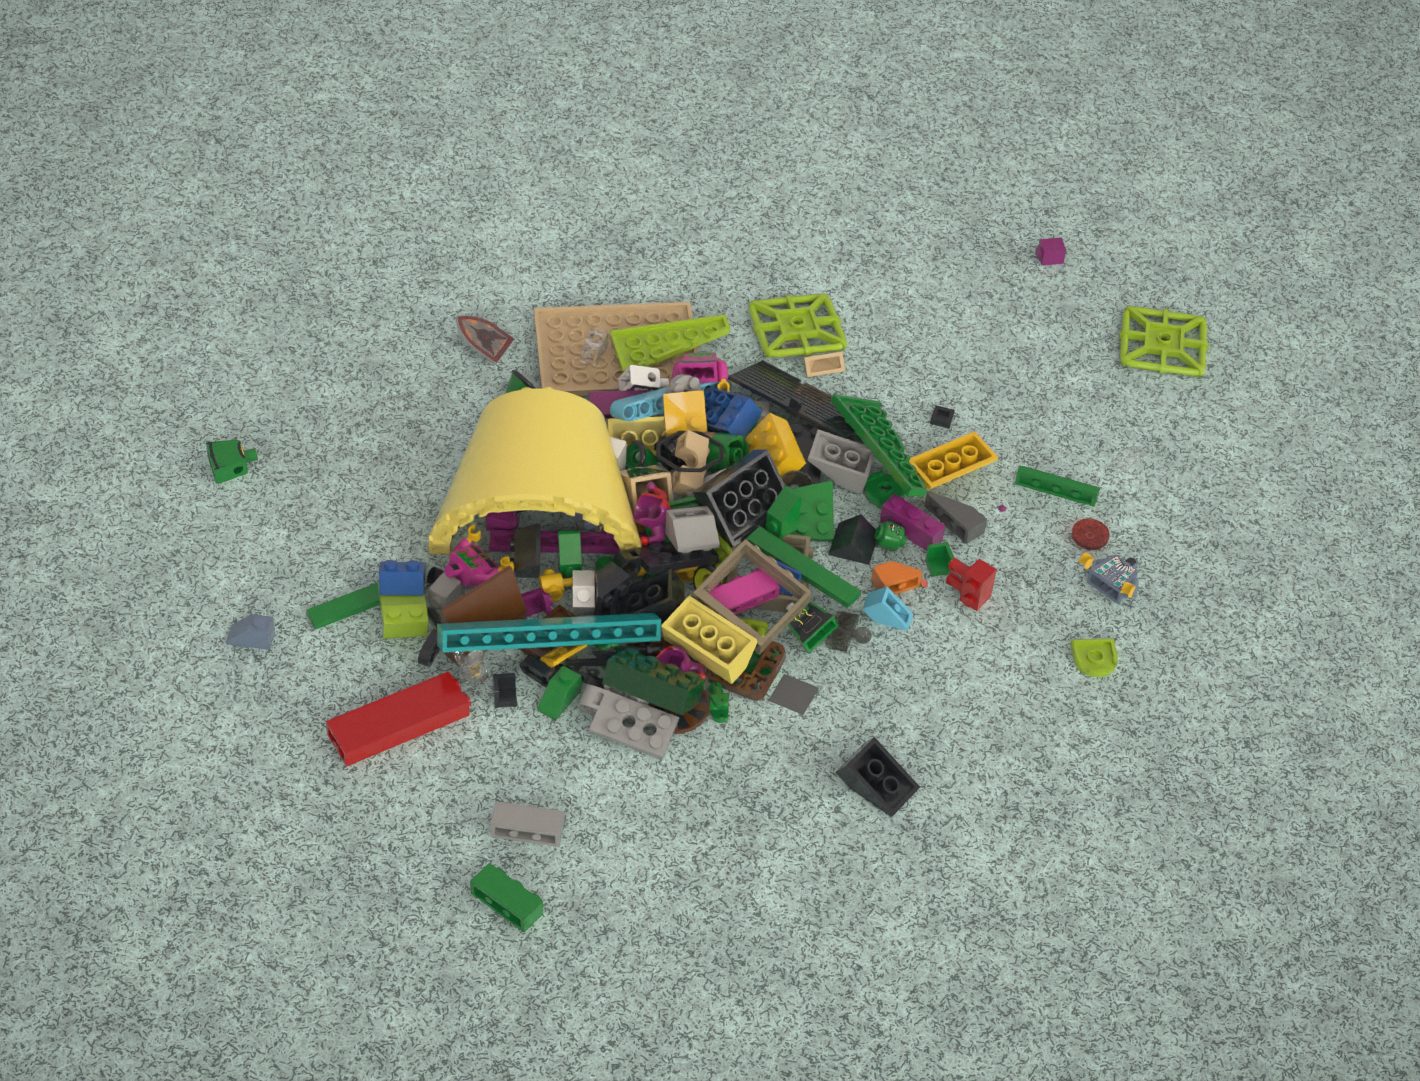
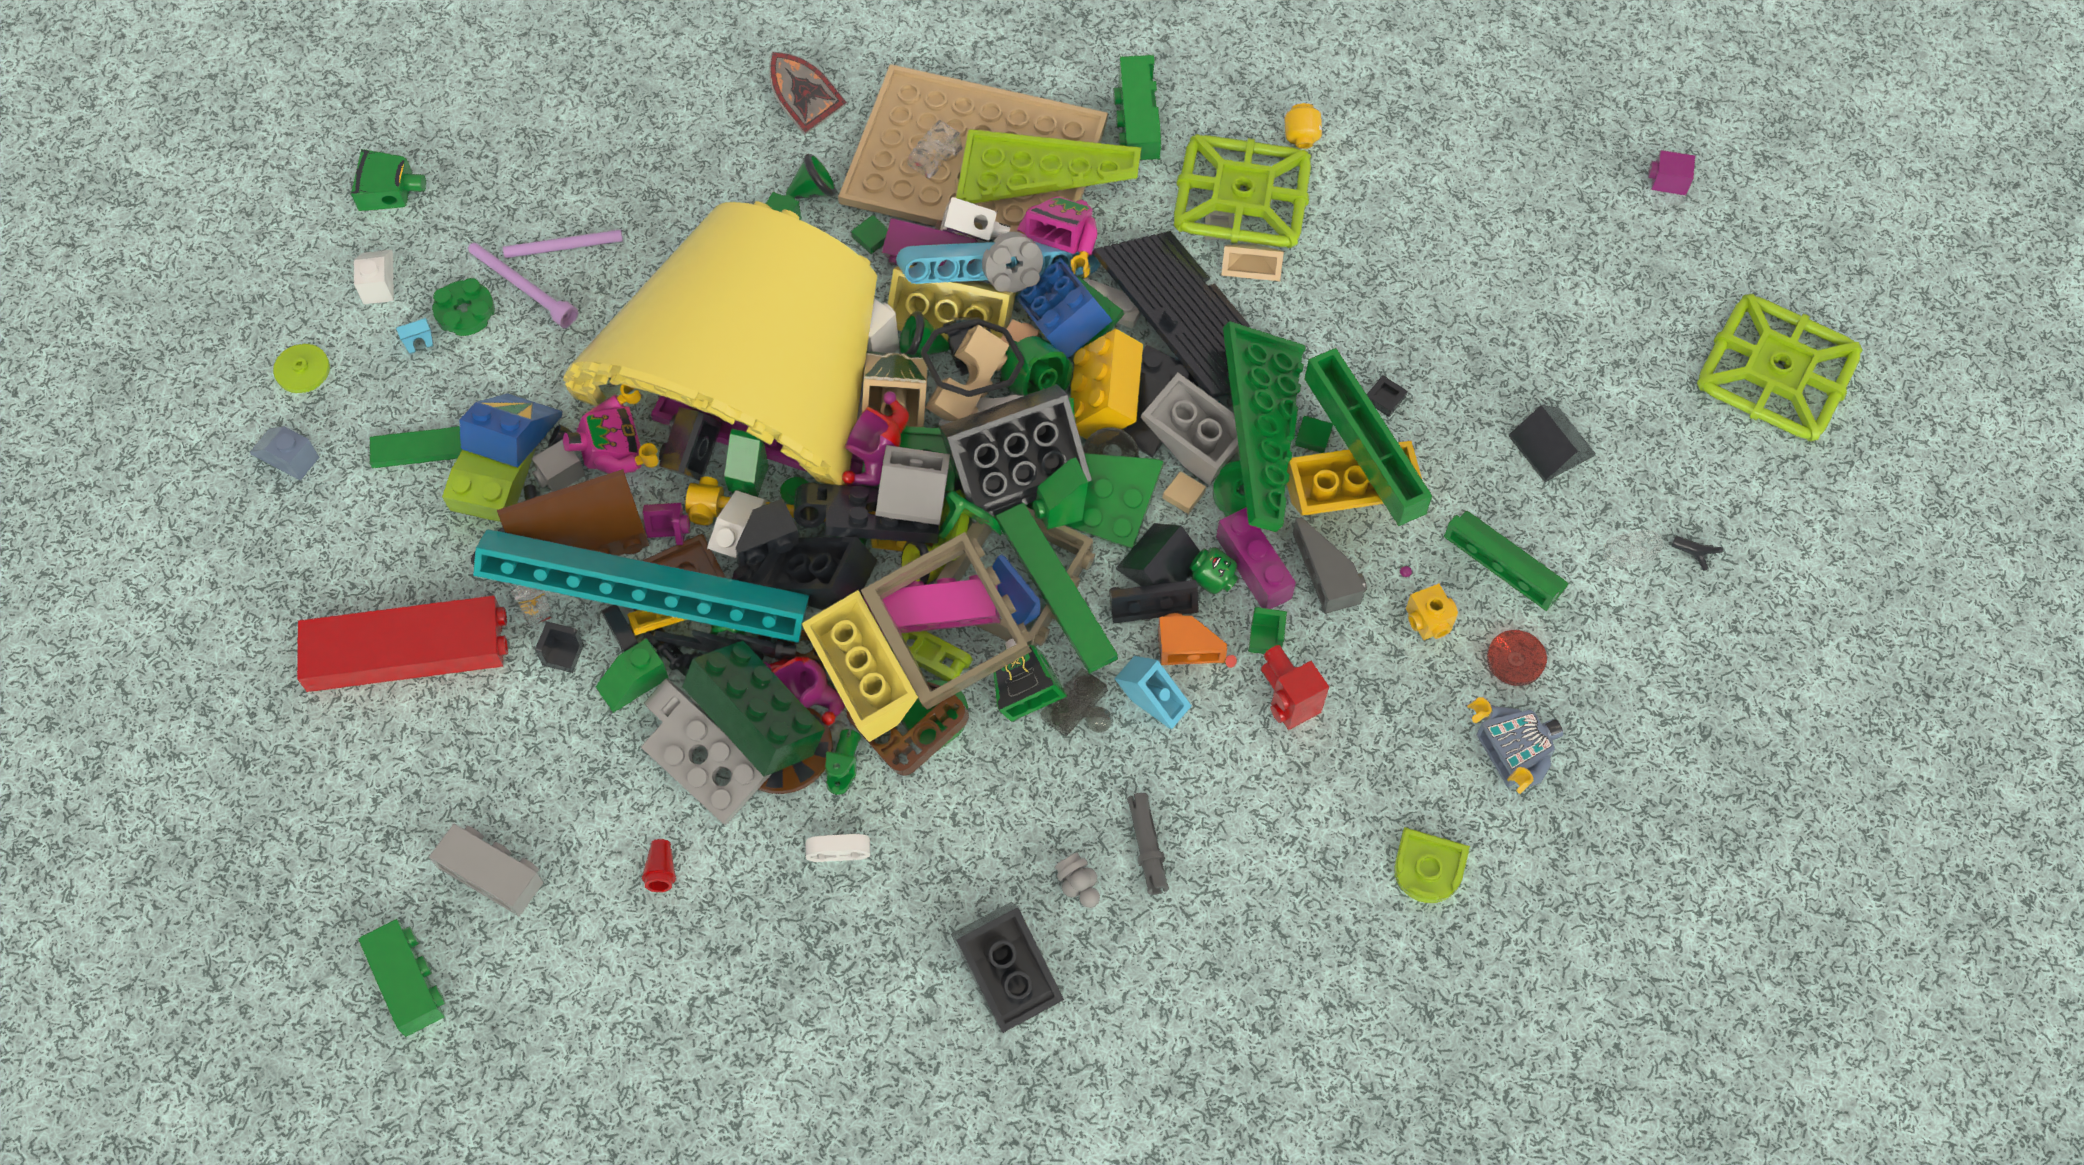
camera: 25 degrees right, 15 degrees up
(232, 585) = (301, 368): none -> lime piece
(255, 517) = (374, 276): none -> white slope
(302, 540) = (413, 331): none -> medium azure tile
(324, 510) = (458, 293): none -> green plate
(370, 466) = (562, 243): none -> lavender bar
(394, 505) = (562, 312): none -> lavender piece
(636, 791) = (659, 867): none -> red cone
(684, 411) = (1000, 290): yellow plate -> none
(706, 291) = (1138, 106): none -> green wedge
(729, 536) = (958, 505): none -> green piece
(741, 748) = (837, 847): none -> white beam
(793, 694) = (959, 780): dark grey sticker -> none
(816, 279) = (1303, 125): none -> yellow head
(848, 501) = (1184, 492): none -> tan tile
(862, 562) = (1153, 601): none -> black hinge
(895, 722) = (1078, 880): none -> light grey piece
(912, 447) = (1314, 434): none -> green tile
(932, 697) = (1150, 855): none -> dark grey pin
(951, 431) = (1367, 437): none -> green brick
(1030, 522) = (1431, 612): none -> yellow brick
(1051, 416) = (1550, 442): none -> black slope
(1165, 450) = (1696, 549): none -> black bar

